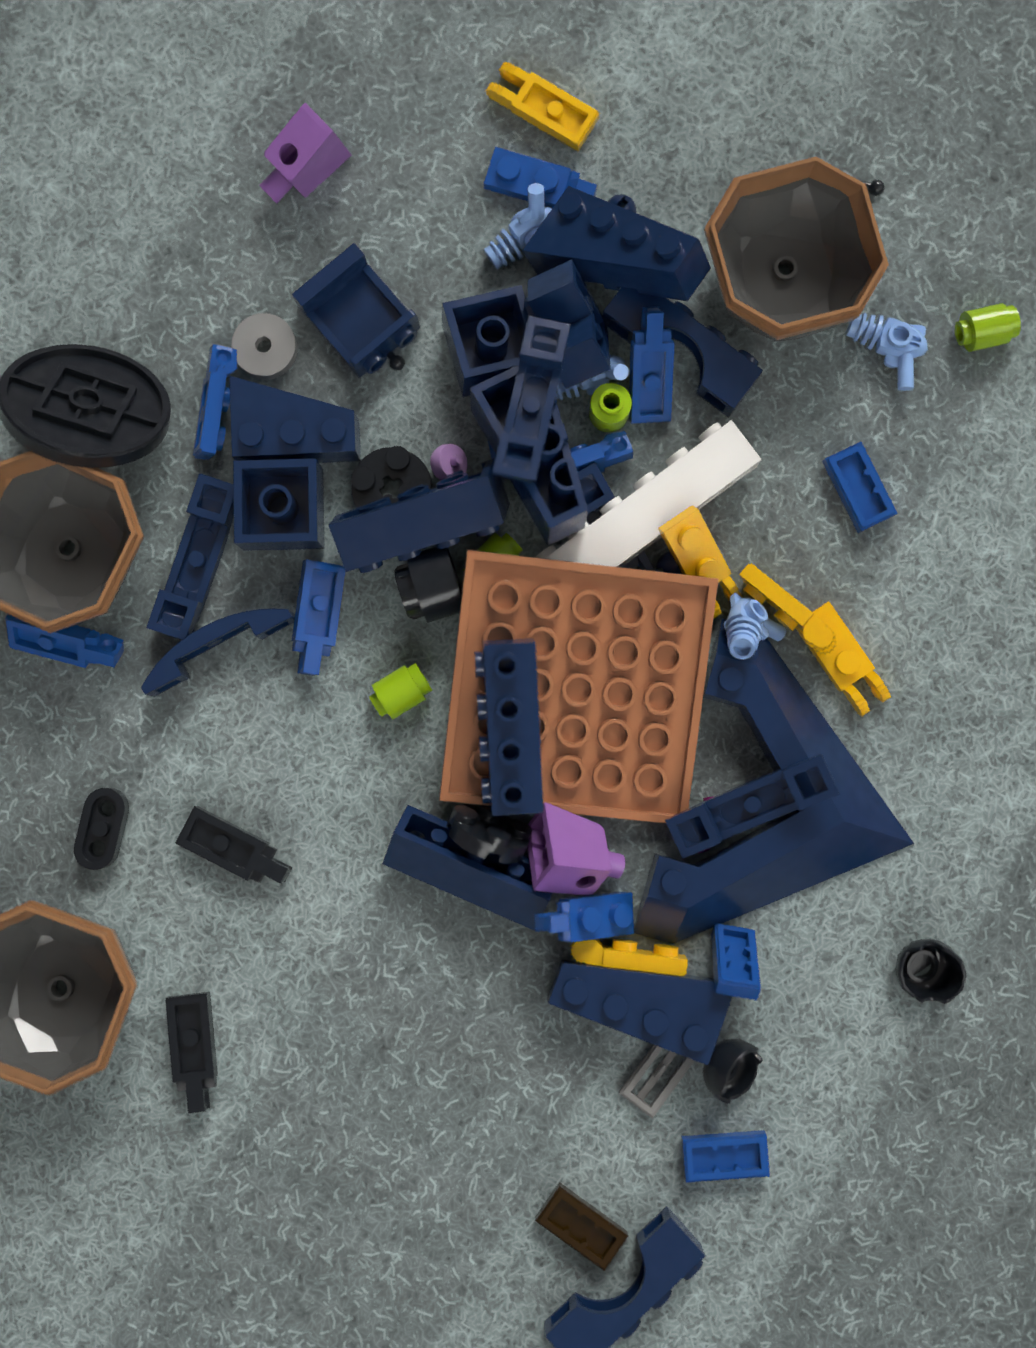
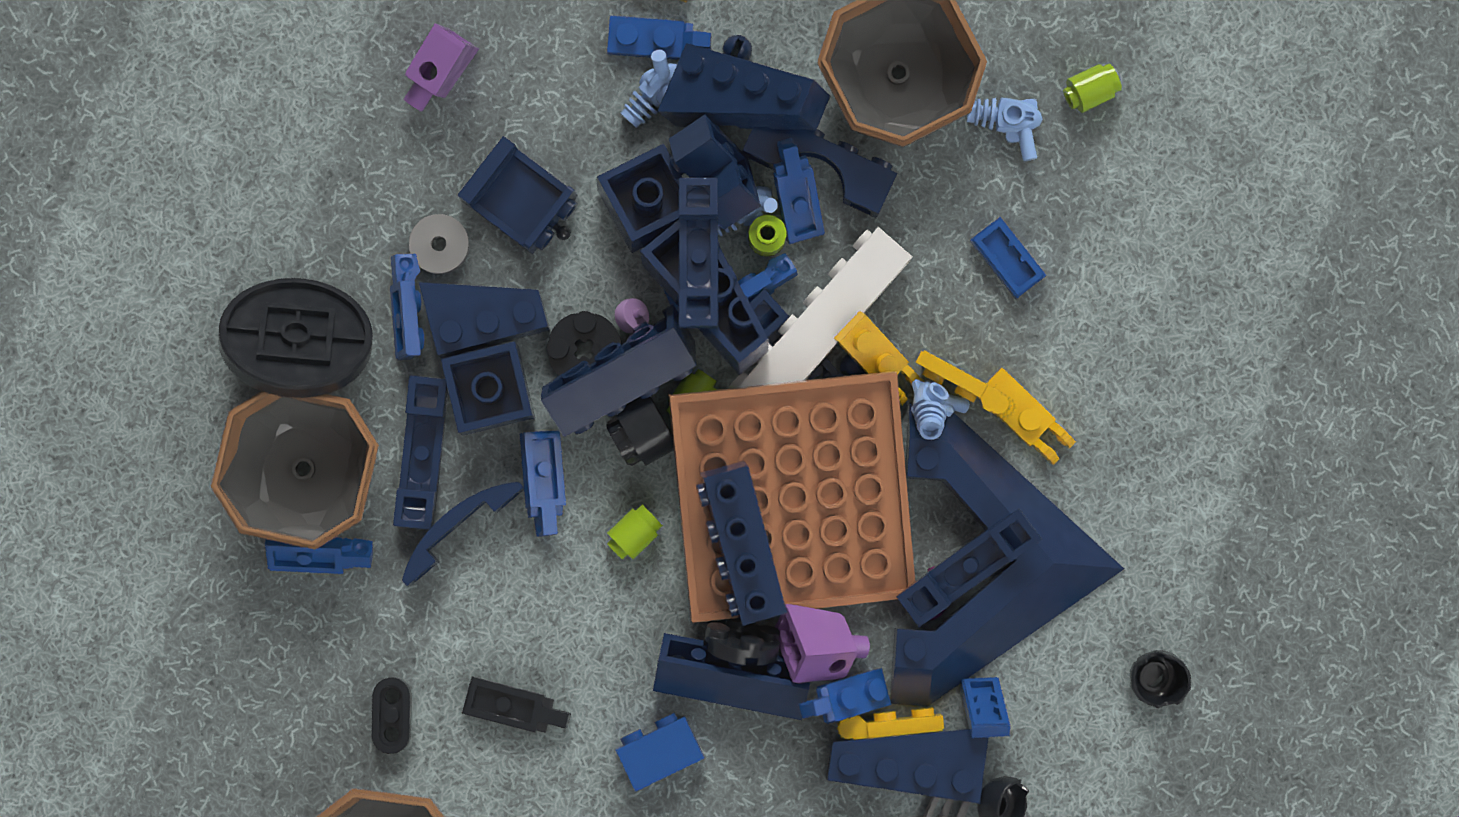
camera: 20 degrees left, 0 degrees up
(375, 931) = (659, 752): none -> blue brick

